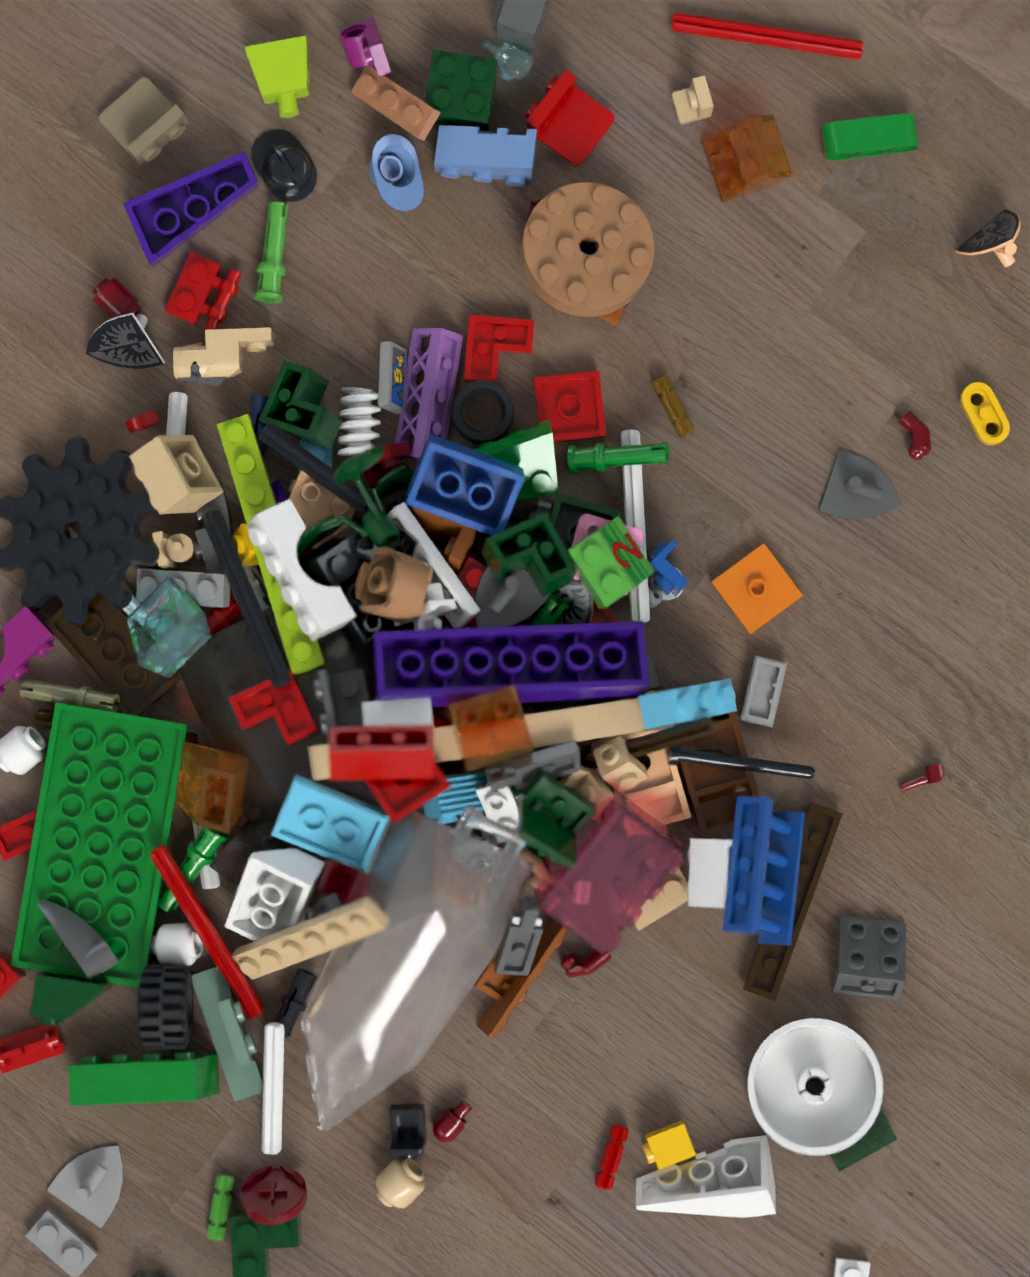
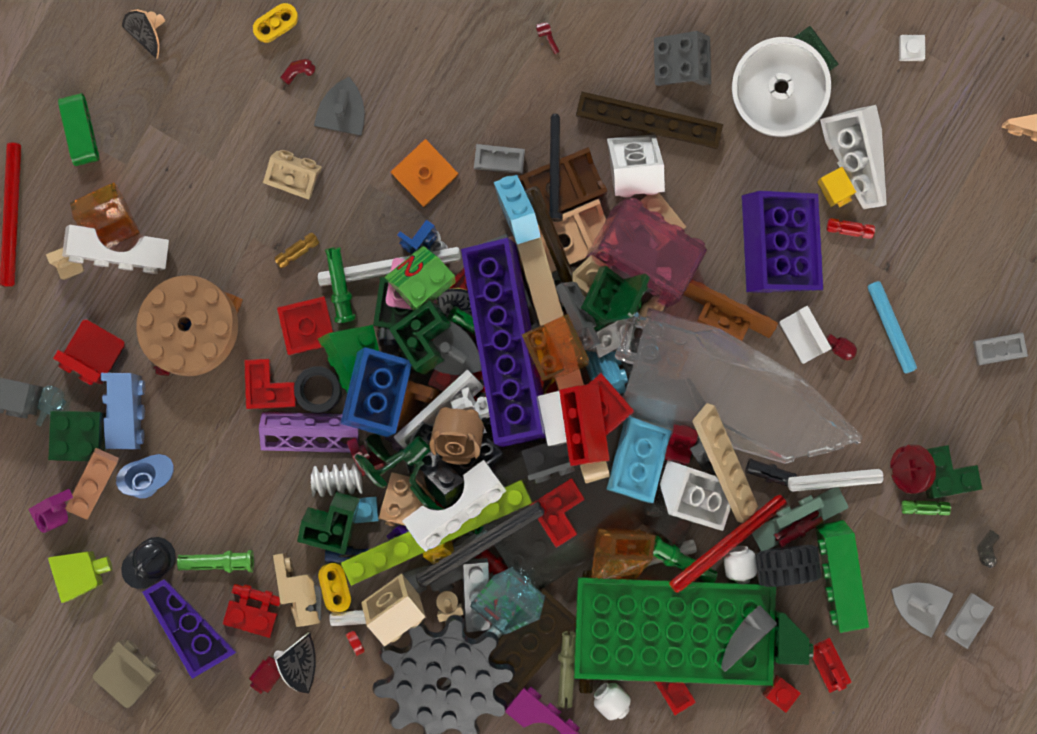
camera: 95 degrees left, 0 degrees up
(213, 1029) = (798, 528): none -> dark red pin
(219, 405) = (335, 587): none -> yellow plate
(312, 467) = (375, 508): black axle -> none
(392, 377) = (300, 460): light grey tile -> none
(400, 1183) = (890, 378): tan head -> none
(407, 1130) = (852, 377): black bracket -> none
(470, 1195) = (892, 327): none -> medium azure axle
(474, 1073) = (804, 335): none -> white panel
(520, 939) = (704, 311): dark grey hinge -> none
(586, 966) = (717, 265): dark red arm -> none
(603, 1060) = (782, 242): none -> dark purple slope
(619, 766) = (568, 255): tan bracket -> none
(711, 126) = (83, 244): none -> white arch
(748, 868) = (631, 140): blue fence -> none
(776, 412) = (292, 173): none -> tan bracket

